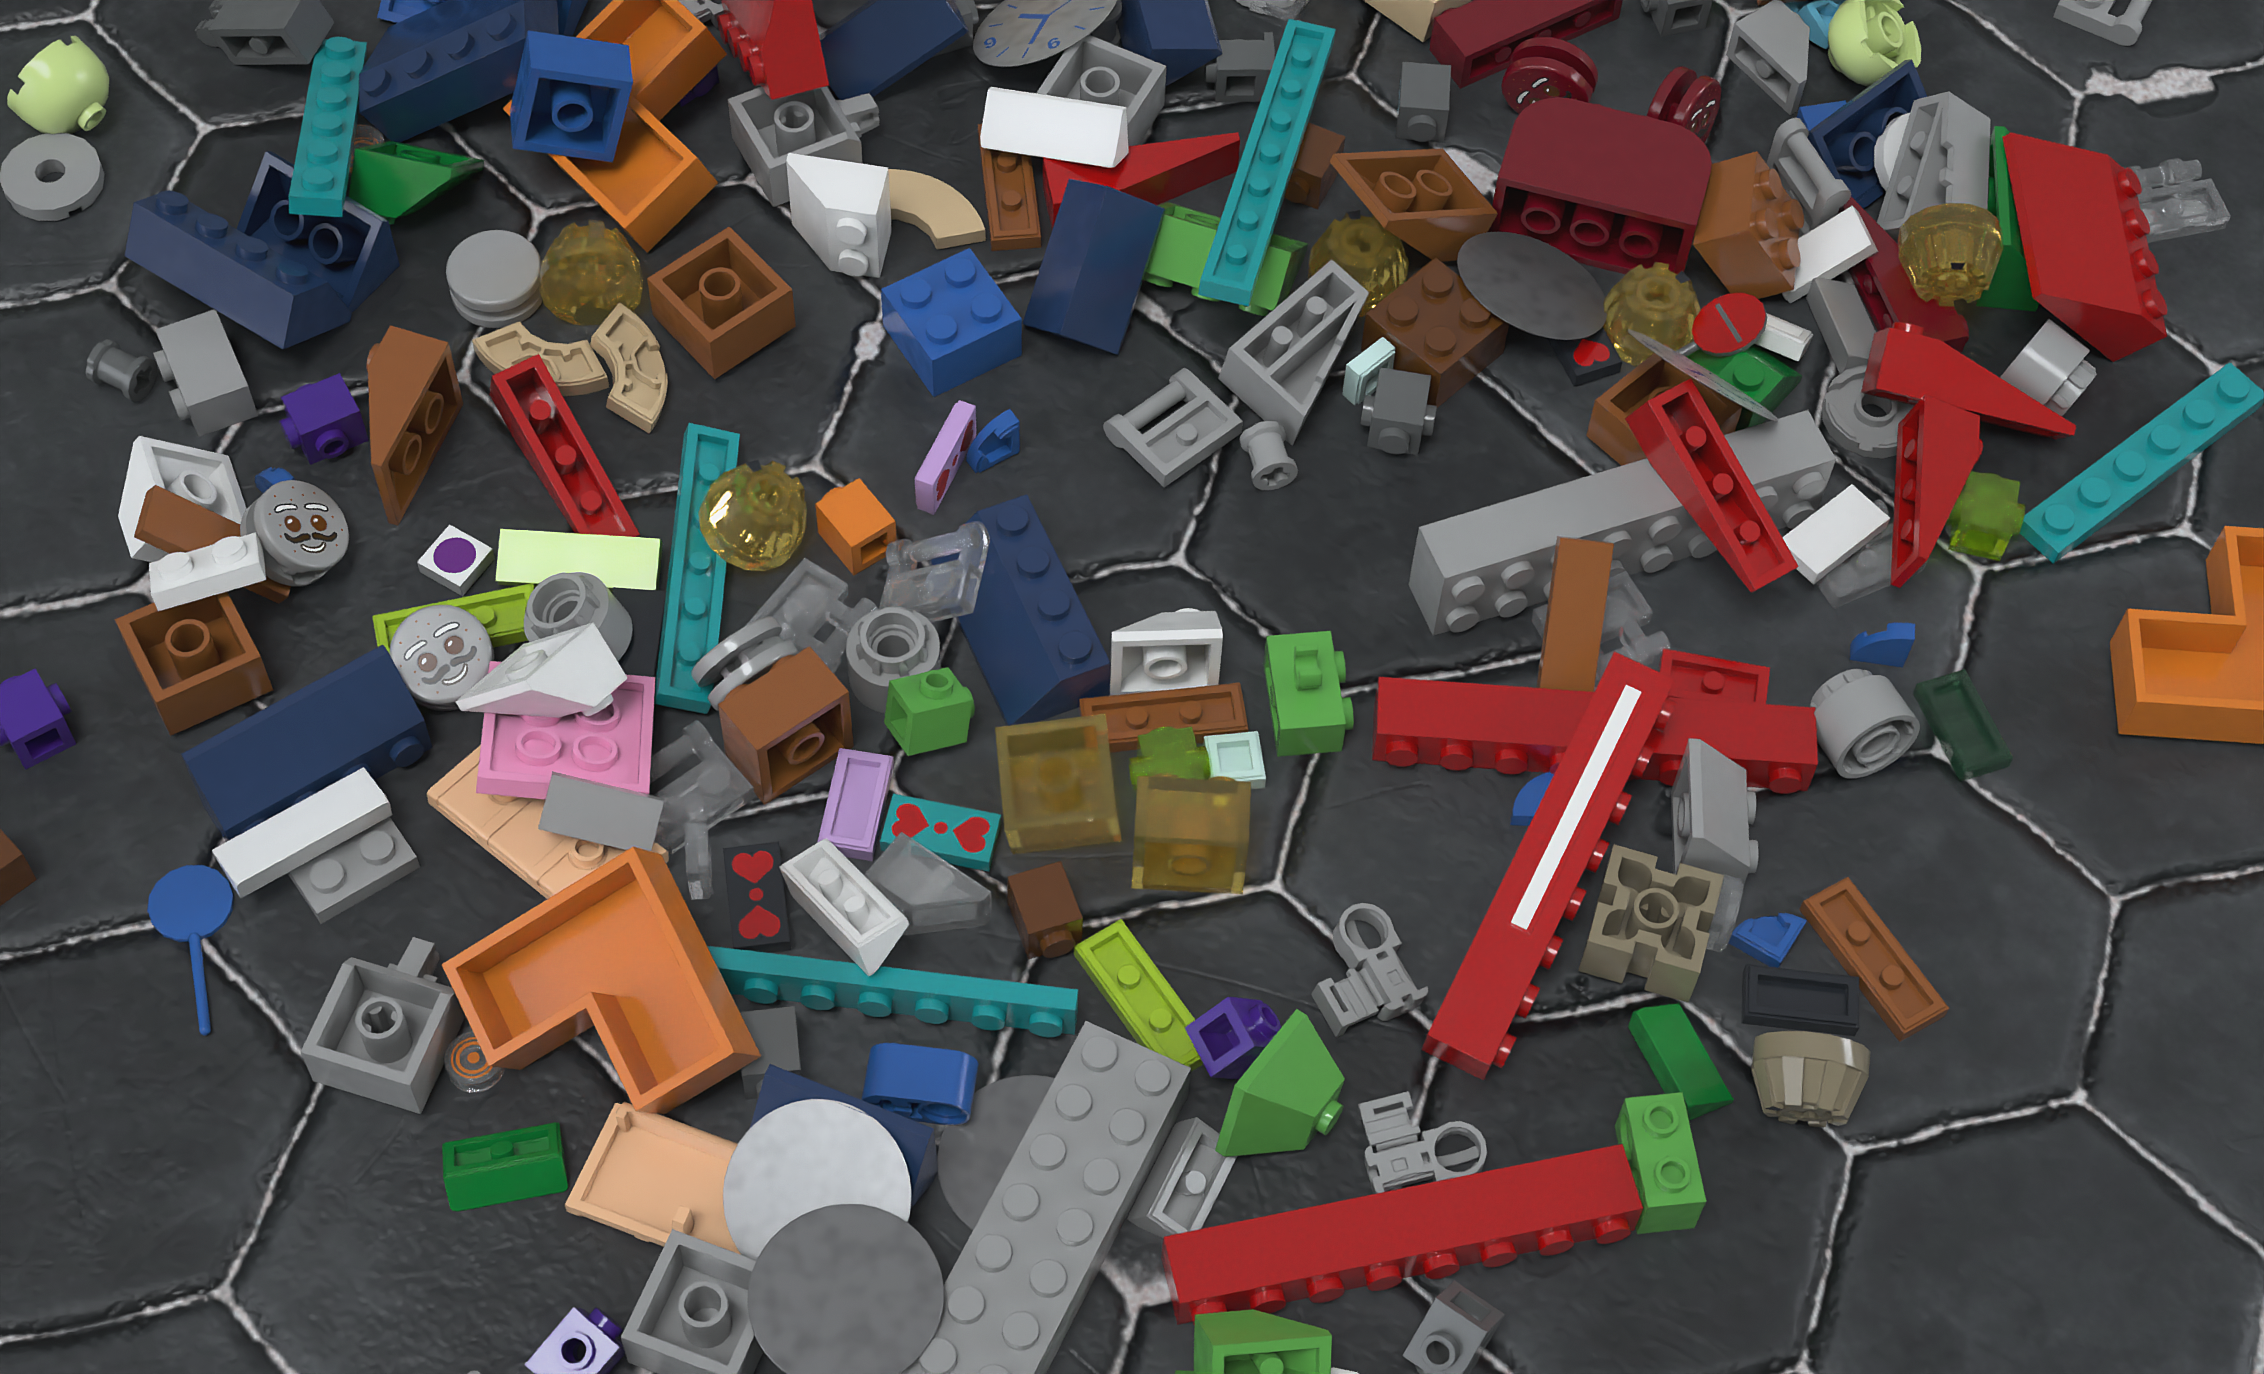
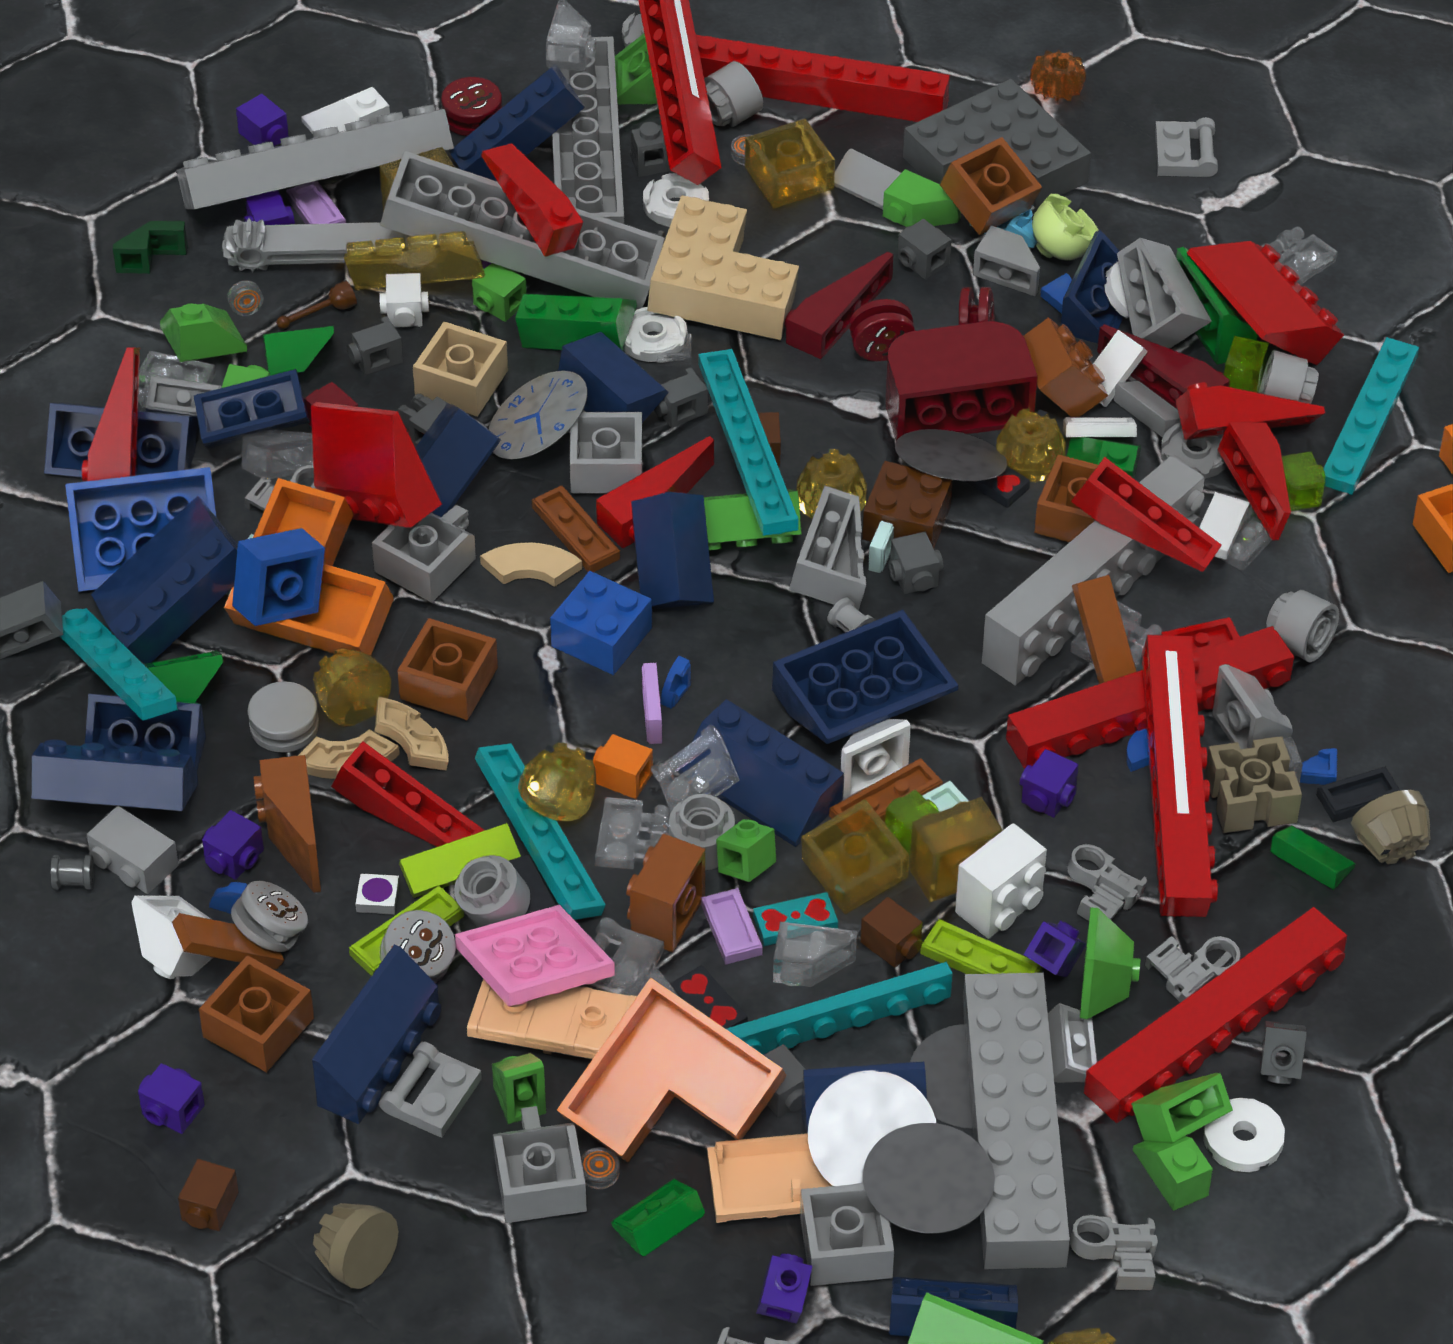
camera: 25 degrees left, 10 degrees down
(98, 1025) = (356, 1243): none -> dark tan piece
(188, 908) = (355, 1162): blue piece -> none
(206, 571) = (242, 954): white plate -> none
(302, 832) = (405, 1081): white slope -> none
(439, 901) = (519, 1085): none -> bright green slope
(550, 677) = (508, 921): white slope -> none
(600, 813) = (594, 985): light grey tile -> none
(742, 658) = (619, 866): light grey head -> none
(841, 211) = (488, 583): white slope -> none
(845, 904) = (774, 976): white slope -> none
(921, 1082) = (883, 1047): blue beam -> none
(1054, 127) = (594, 477): white slope -> none
(1180, 438) = (790, 633): light grey plate -> none
(1221, 542) = (860, 678): none -> dark blue slope
(1222, 907) = (1001, 881): none -> white brick
(1306, 693) = (965, 746): bright green brick -> none
(1382, 796) = (1049, 783): none -> dark purple brick
(1418, 197) = (854, 429): dark orange slope -> none
(1423, 102) = (808, 374): dark grey brick -> none
(1662, 1161) = (1342, 905): bright green brick -> none
(1703, 375) = (1098, 457): flat silver sticker -> none
(1727, 325) = (1082, 433): red piece -> none
(1806, 175) = (1102, 326): light grey plate -> none
(1875, 956) = (1380, 750): dark orange tile -> none
(1884, 647) = (1288, 579): blue tile -> none
(1950, 251) = (1196, 332): clear yellow piece -> none
(1962, 725) = (1359, 605): clear green tile -> none
(2004, 324) = (1246, 363): none -> clear neon green brick

